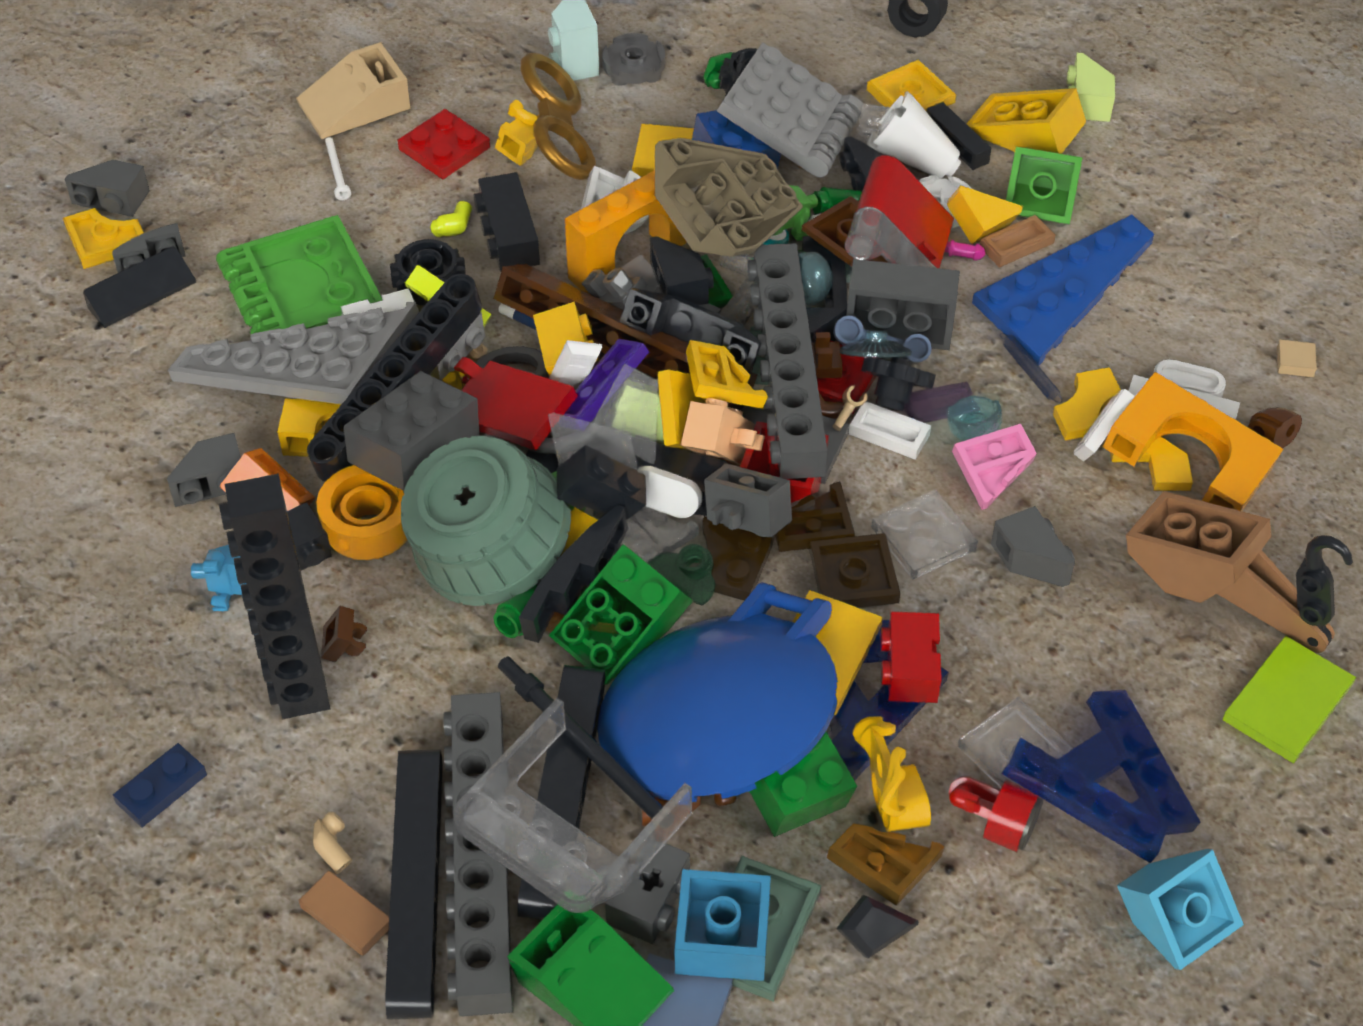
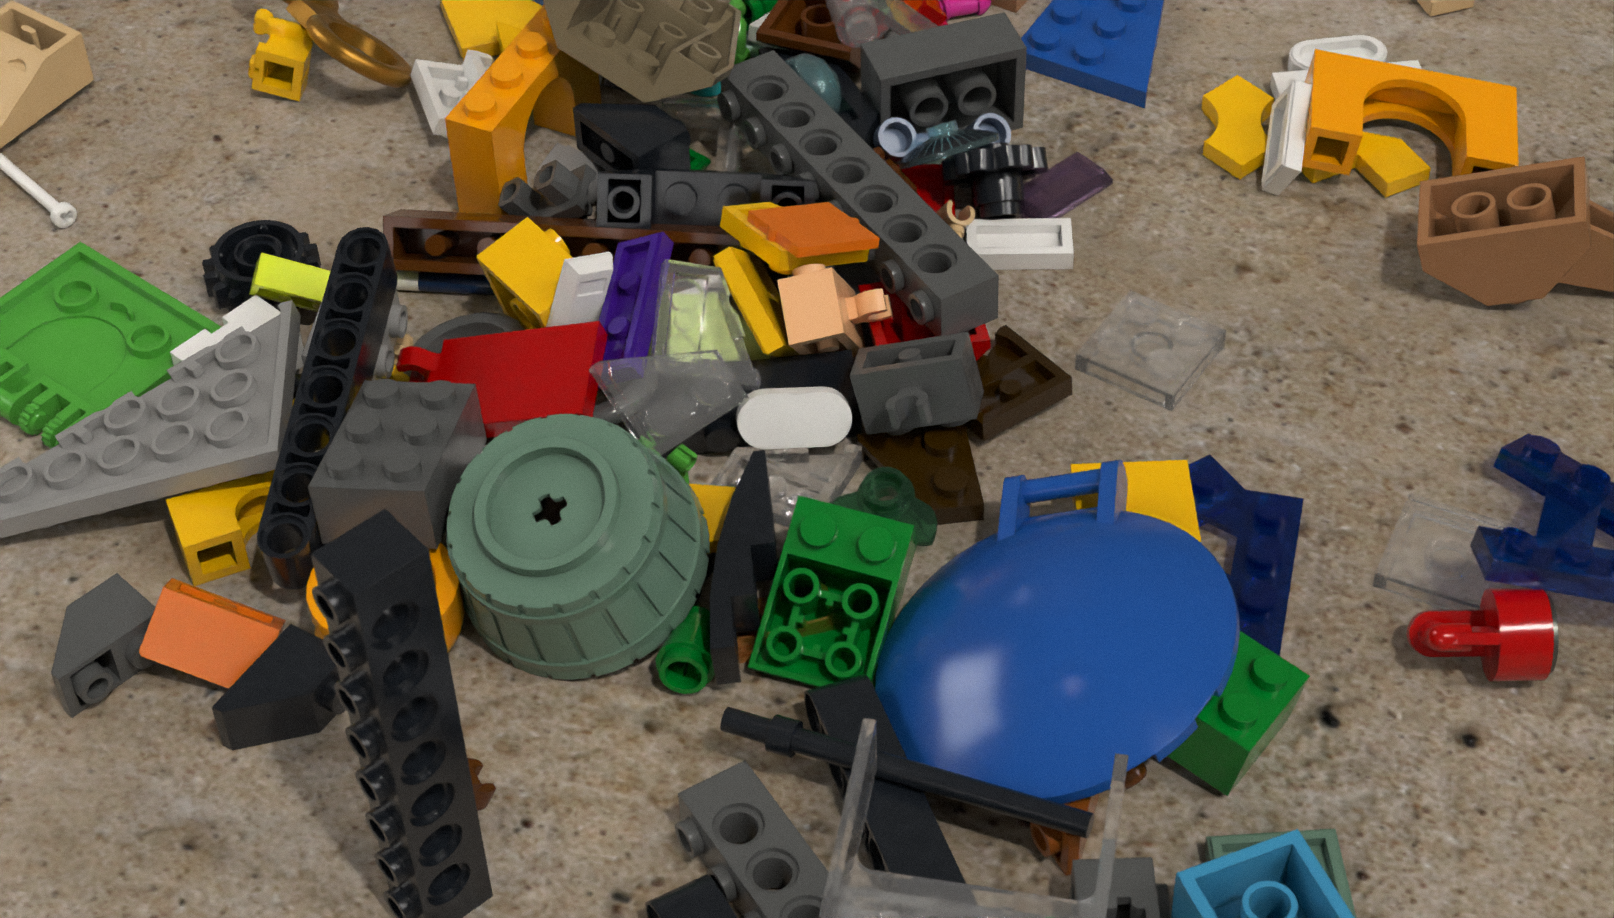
camera: 25 degrees left, 5 degrees down
(219, 575) = (224, 768): dark azure piece -> none
(444, 143) = (172, 107): red plate -> none
(453, 223) = (253, 200): neon yellow arm -> none
(507, 221) = (334, 167): black brick -> none
(600, 483) = (714, 431): black brick -> none
(732, 376) = (813, 229): none -> orange piece
(855, 570) = (1099, 421): dark brown plate -> none
(874, 926) = (1439, 848): black piece -> none
(883, 860) = (1390, 762): pearl gold wing -> none
(895, 788) = (1353, 667): yellow piece -> none
(913, 659) = (1260, 492): red brick -> none
(974, 417) = (1122, 189): clear light blue hair -> none
(994, 461) = (1177, 231): bright pink wing -> none
(1032, 366) = (1127, 106): dark blue piece -> none
(1032, 548) = (1301, 312): dark grey slope -> none
(1276, 425) = (1479, 62): reddish brown piece -> none

